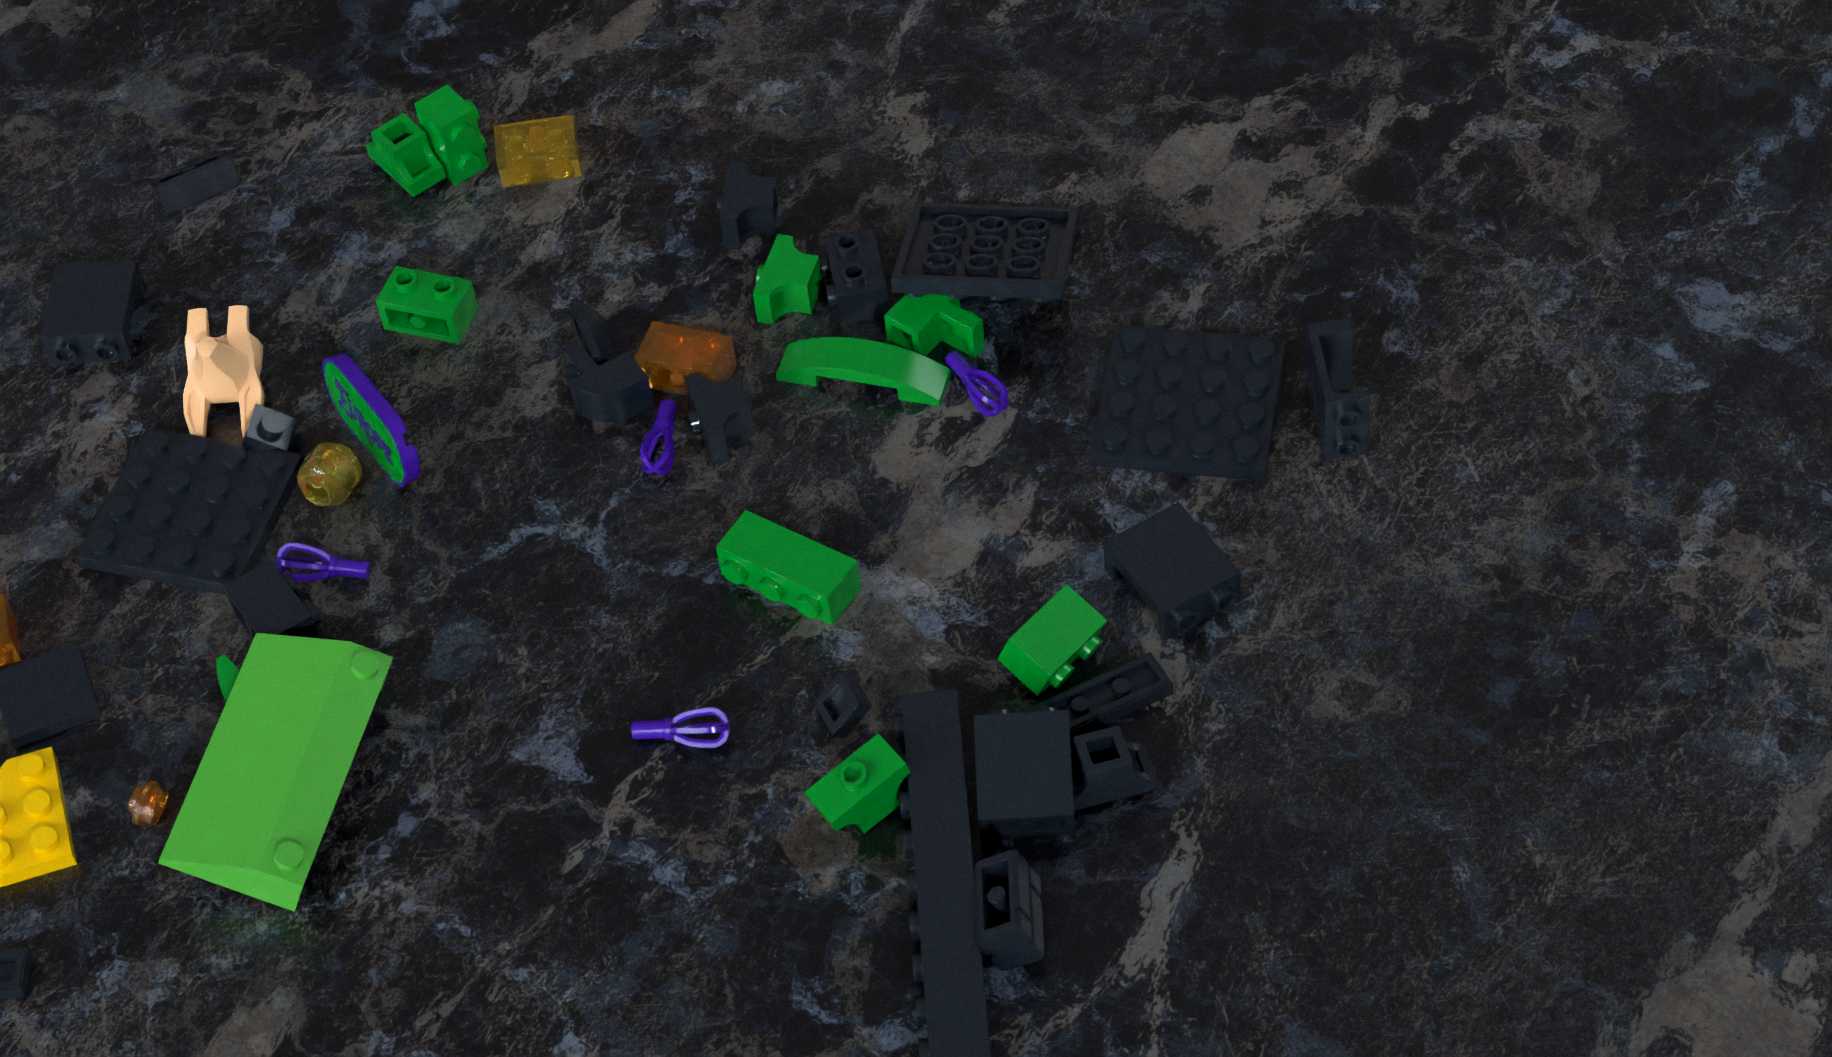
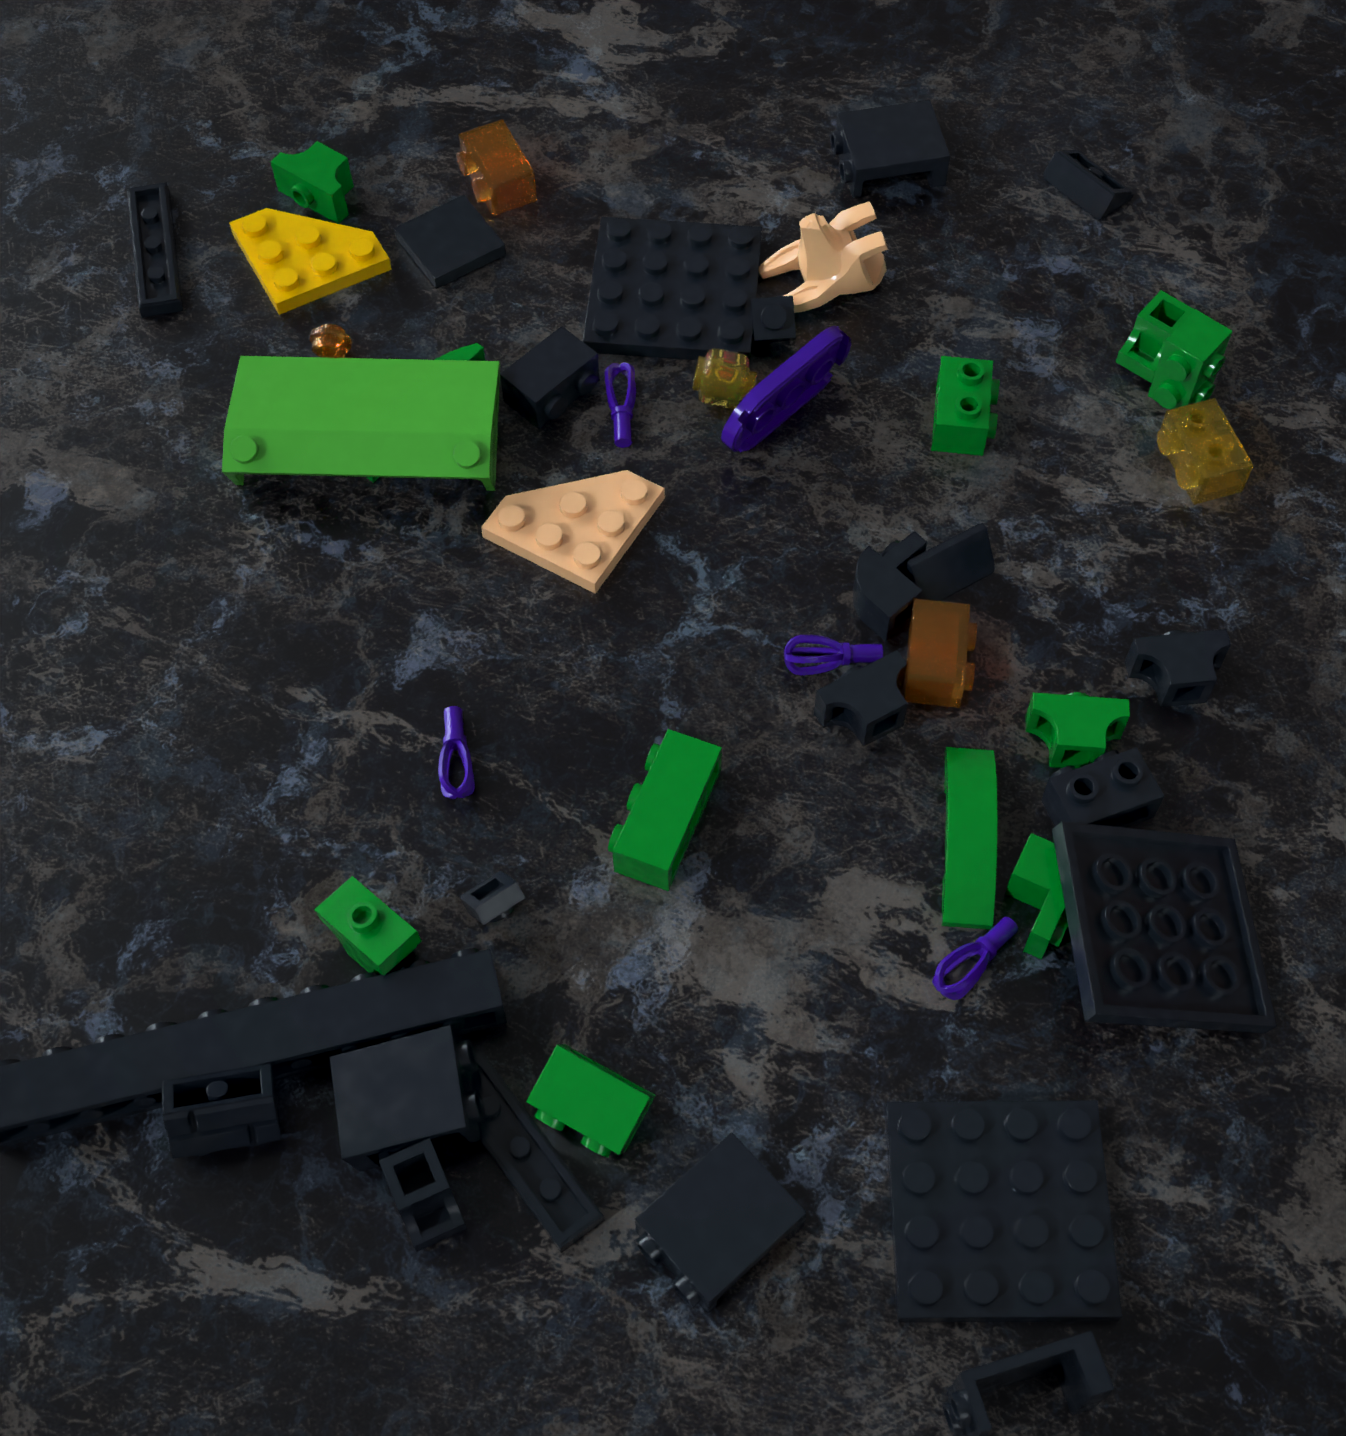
camera: 75 degrees right, 10 degrees up
(453, 616) = (576, 525): none -> light nougat plate

